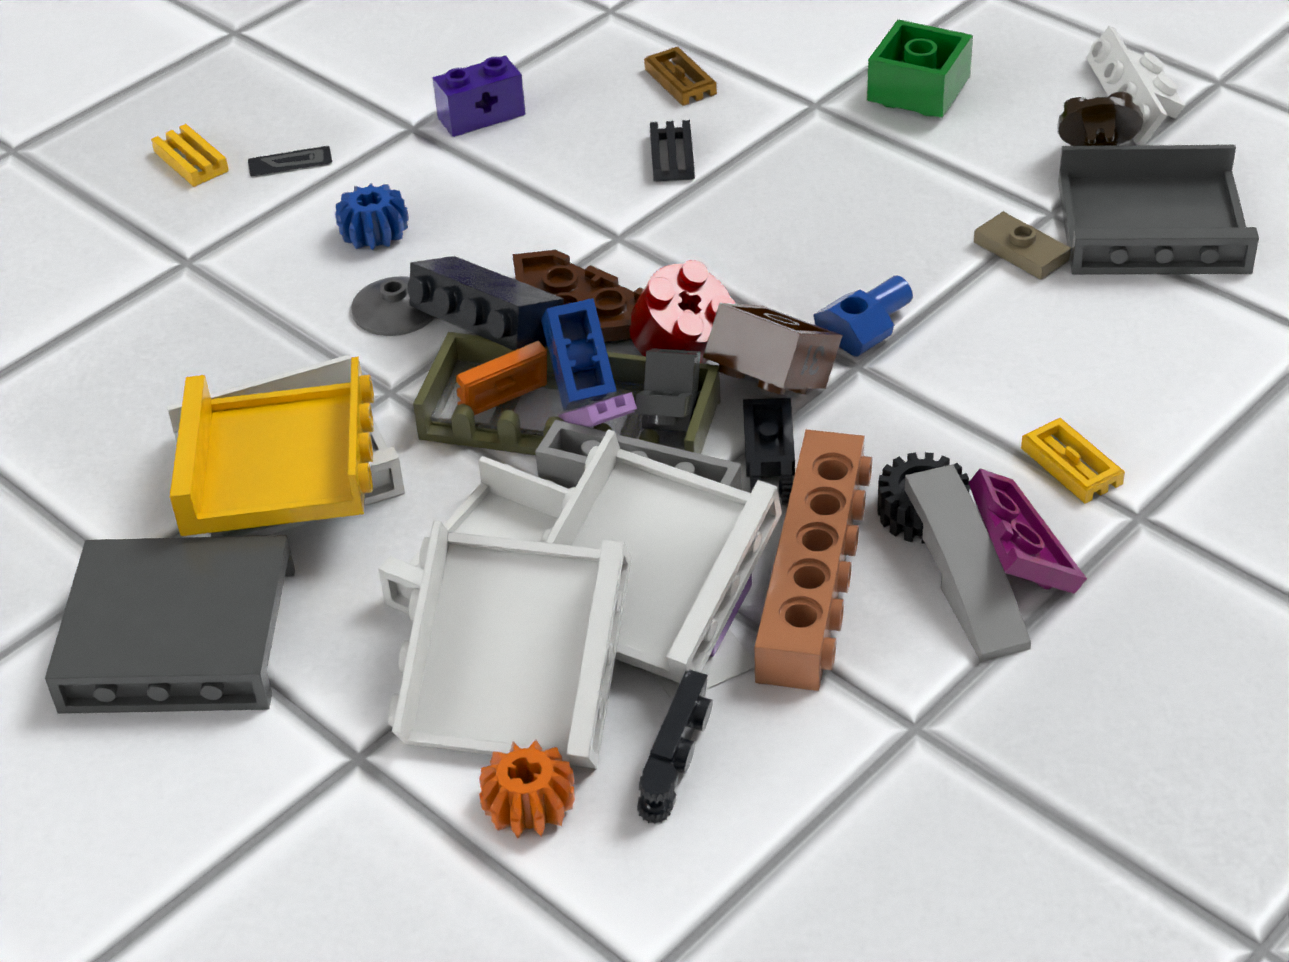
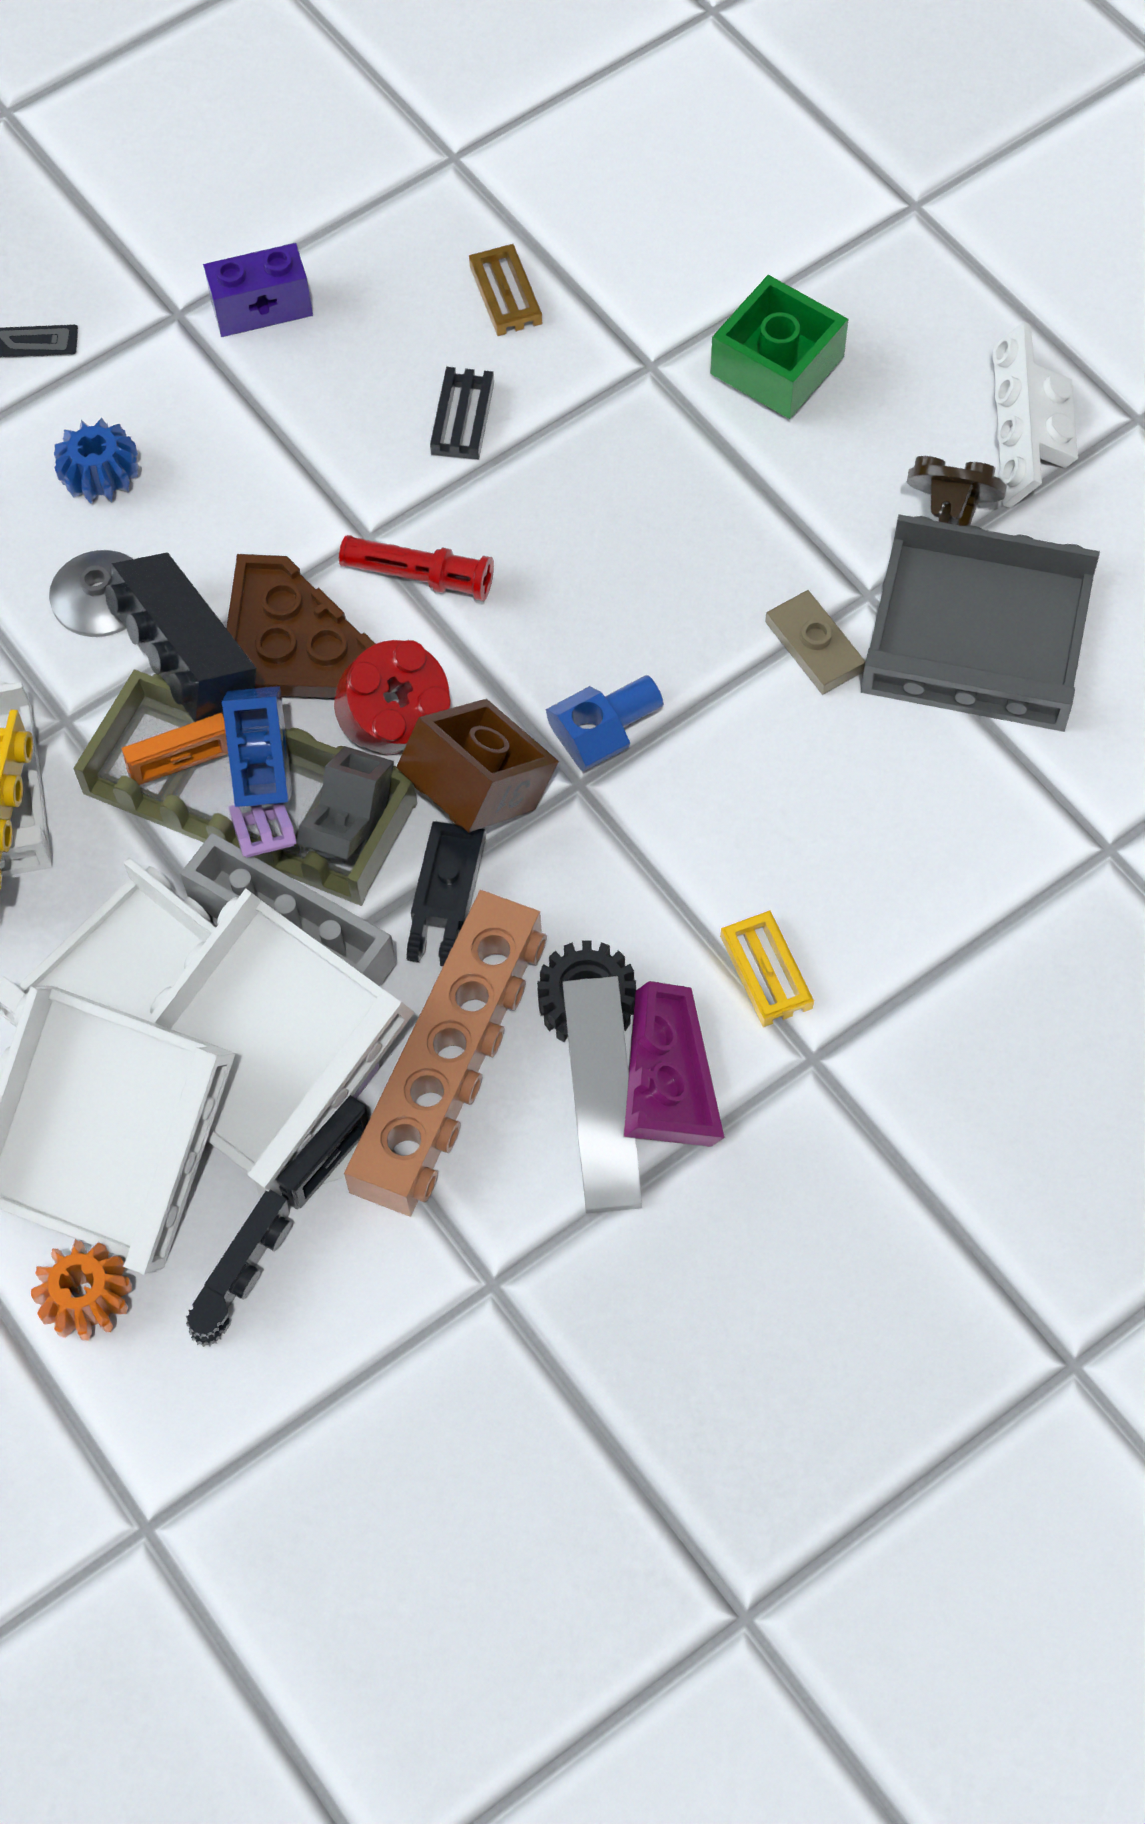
camera: 10 degrees right, 20 degrees up
(673, 242) = (439, 569): none -> red pin
(728, 641) = (323, 1153): none -> black tile

